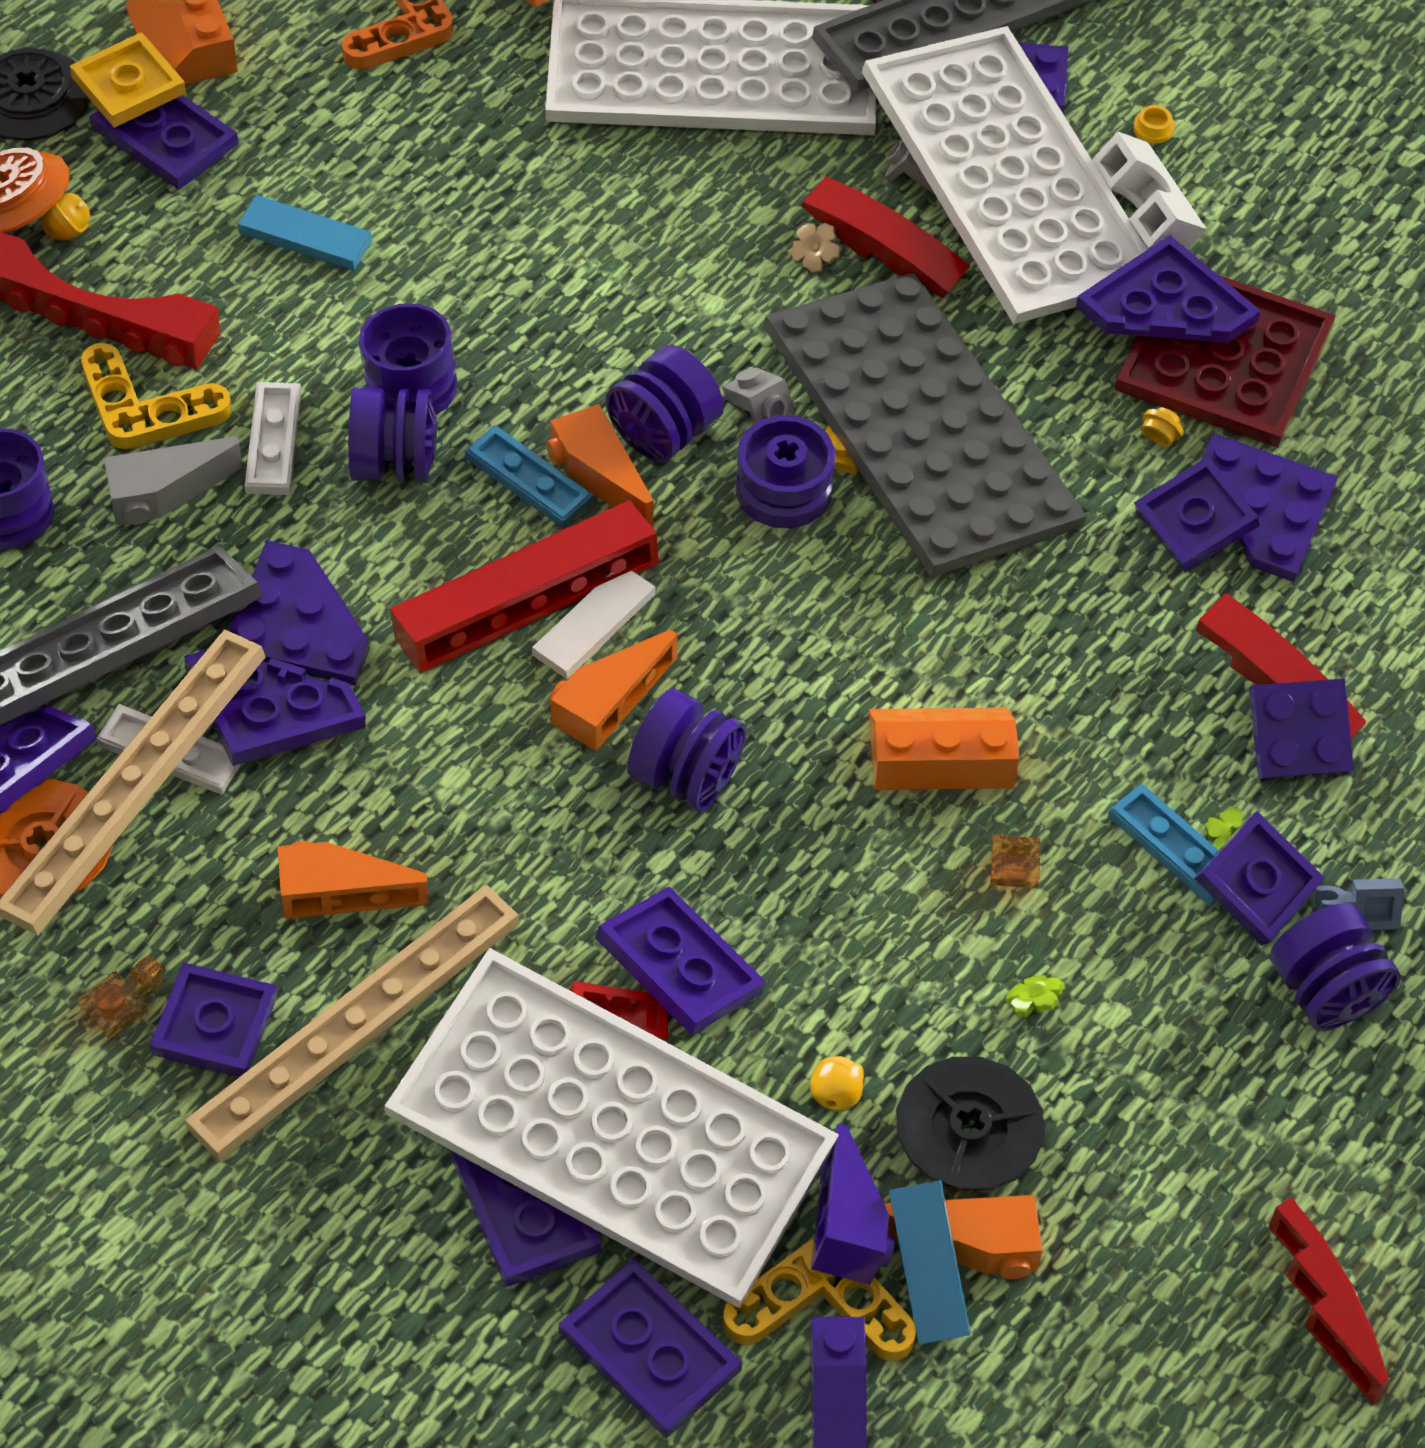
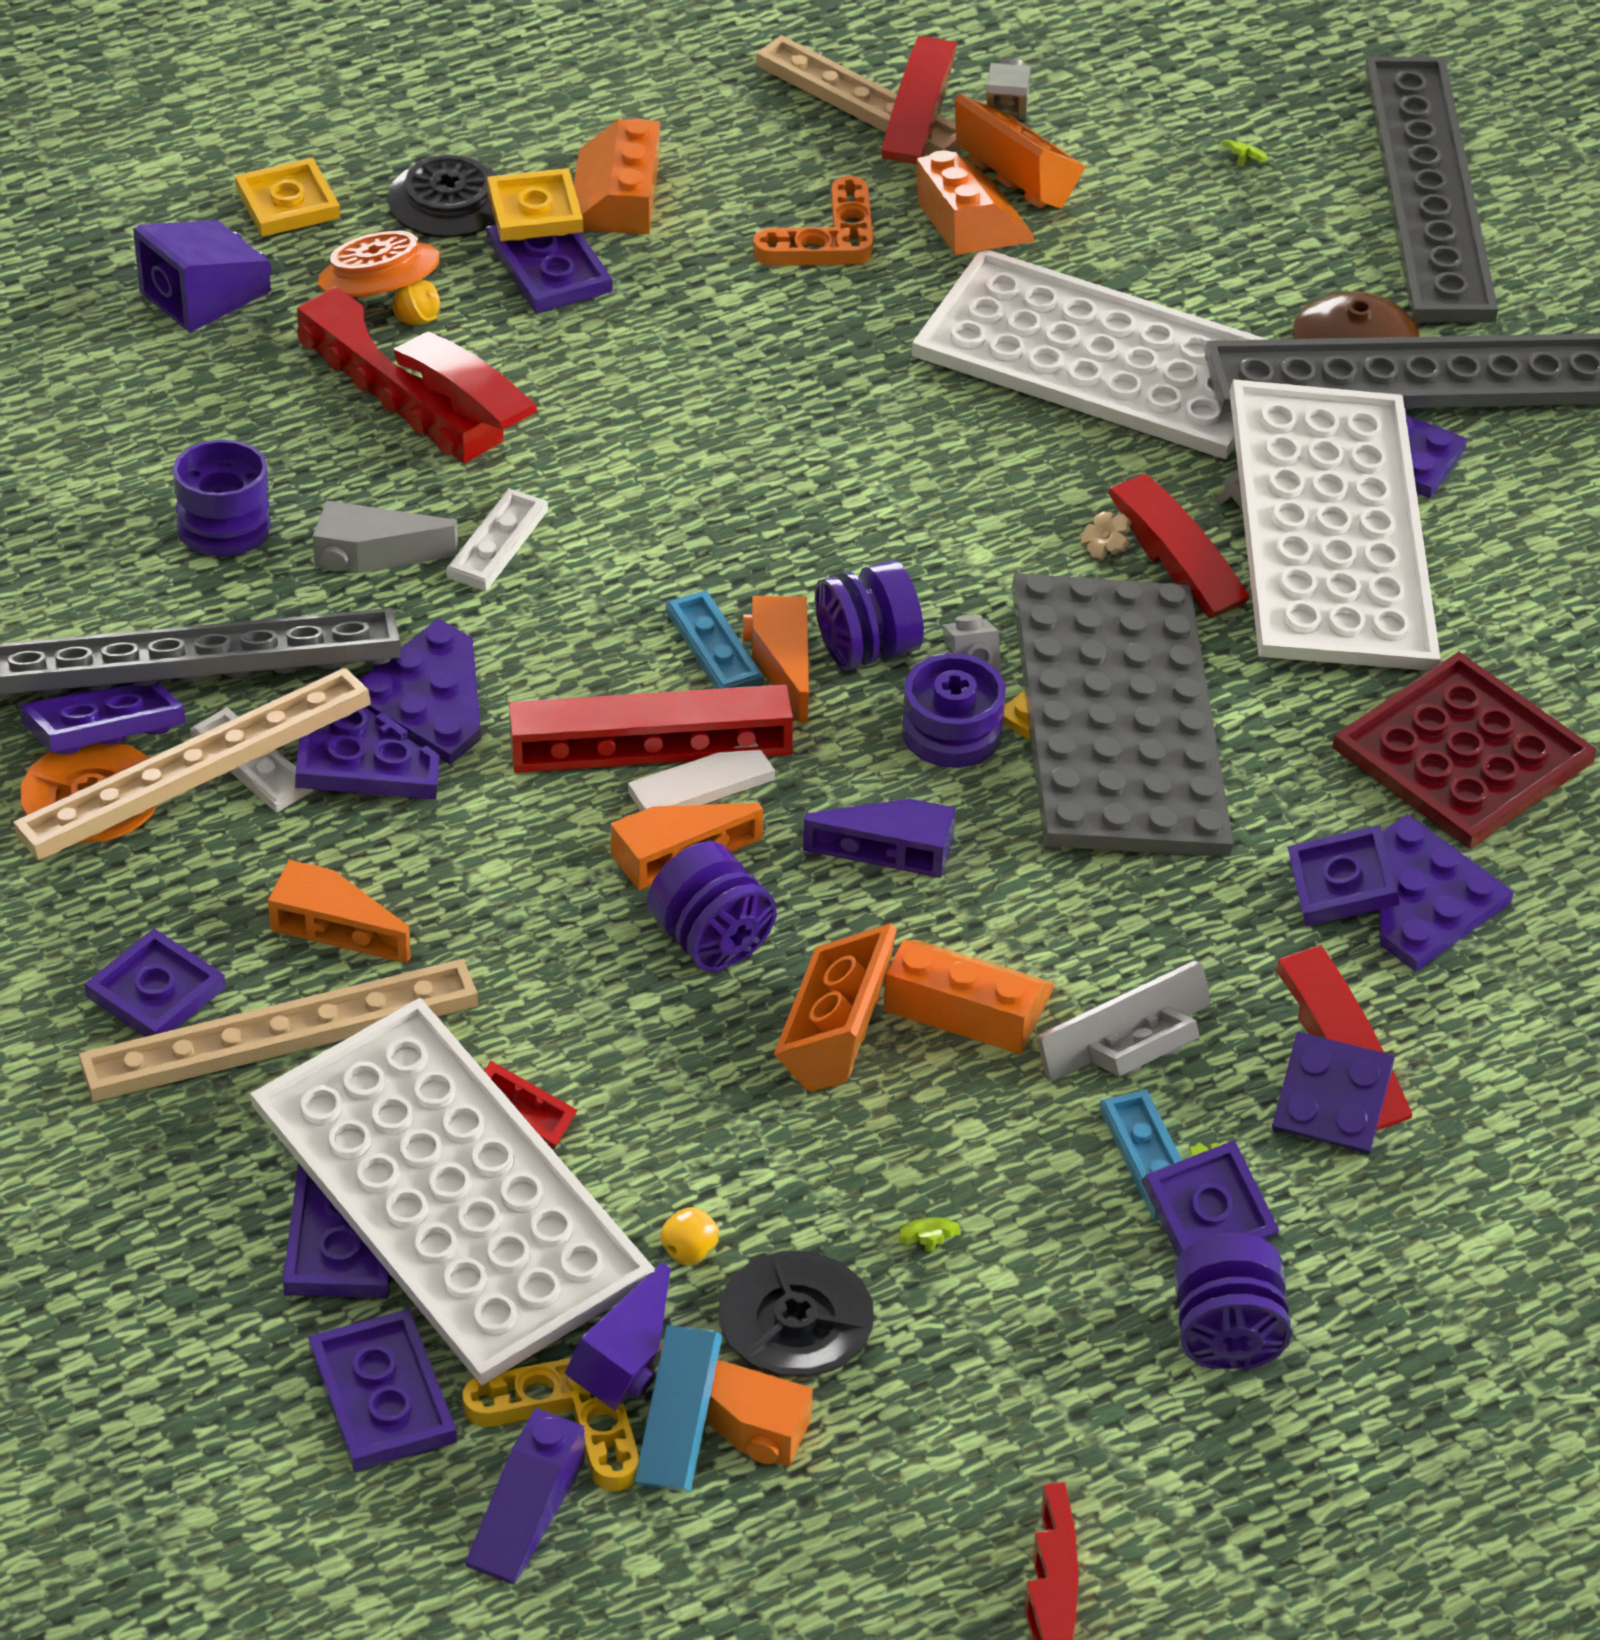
camera: 25 degrees right, 10 degrees down
(120, 1002) = (83, 943): clear orange plate -> none
(132, 411) = (383, 476): yellow beam -> none
(180, 291) = (471, 383): none -> red slope
(304, 232) = (629, 381): dark azure tile -> none
(390, 434) = (595, 561): dark purple wheel -> none
(409, 350) = (649, 508): dark purple wheel -> none
(680, 960) = (604, 1082): dark purple plate -> none
(798, 614) = (889, 834): none -> dark purple slope
(853, 808) = (835, 1007): none -> orange slope
(1015, 861) = (978, 1112): clear orange plate -> none
(1102, 731) = (1129, 1028): none -> light grey bracket
(1138, 174) = (1471, 606): white arch -> none
(1154, 124) = (1514, 531): yellow plate -> none
(1161, 426) = (1357, 791): yellow plate -> none
(1168, 296) = (1425, 675): dark purple plate -> none
(1376, 899) = (1312, 1268): sand blue plate -> none

